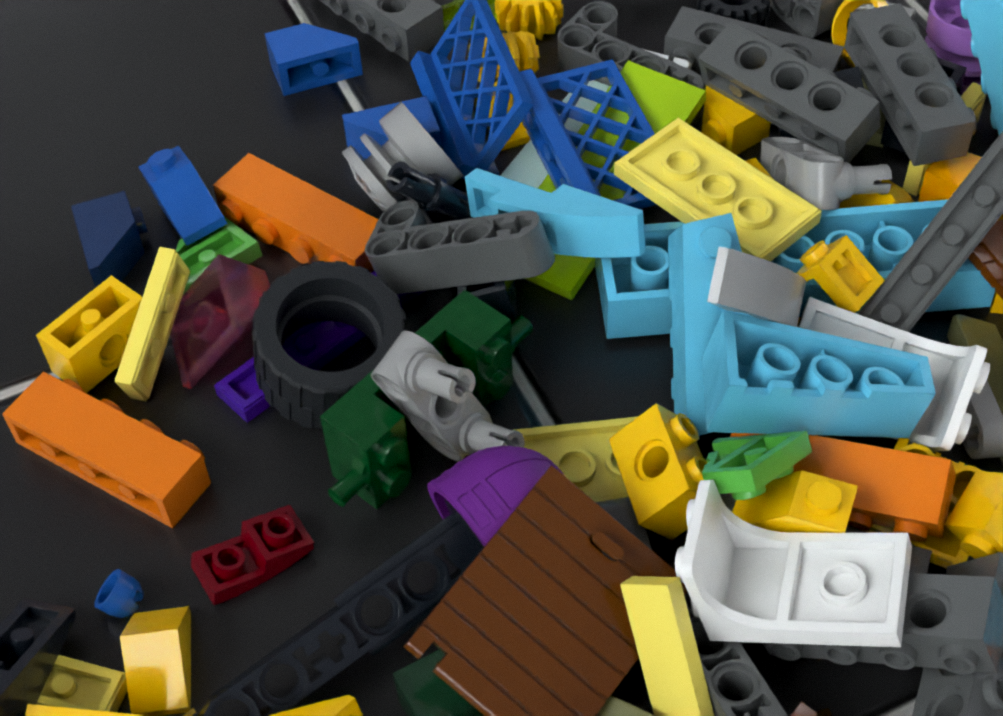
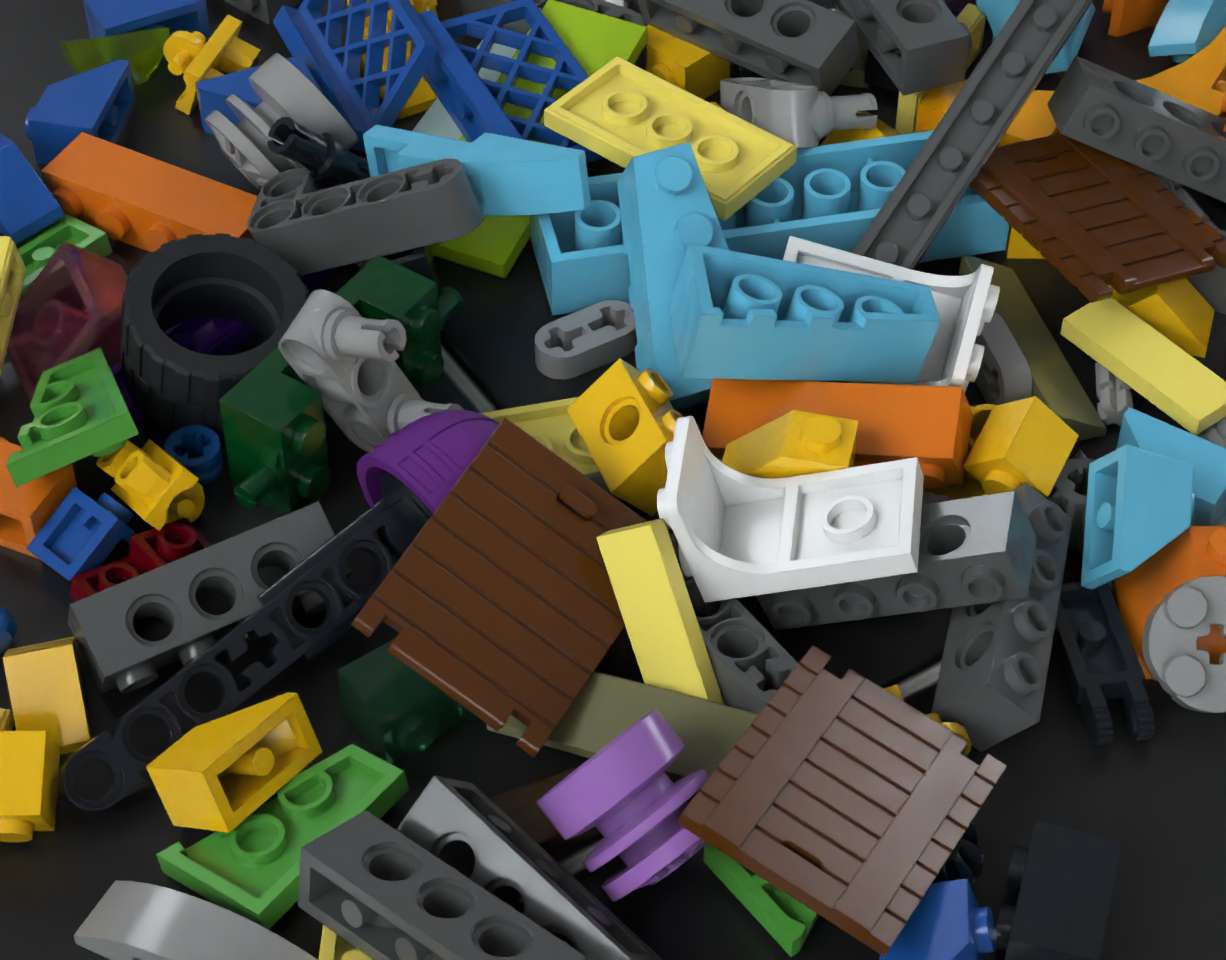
camera: 10 degrees left, 5 degrees down
(205, 514) = (81, 533): none -> blue bracket
(210, 414) = (75, 416): none -> bright green wing
(211, 604) = (106, 619): none -> dark grey brick
(254, 128) = (89, 102): none -> blue slope
(264, 473) = (154, 484): none -> yellow hips
(288, 87) = (140, 47): none -> clear neon green tile
(303, 460) = (199, 440): none -> blue bush
(353, 95) = (203, 61): none -> yellow hips
(632, 362) = (585, 340): none -> light grey beam
(750, 462) = (739, 407): bright green wing -> none
(756, 287) = (725, 212): light grey slope -> none
(841, 272) = (823, 209): yellow bracket -> none

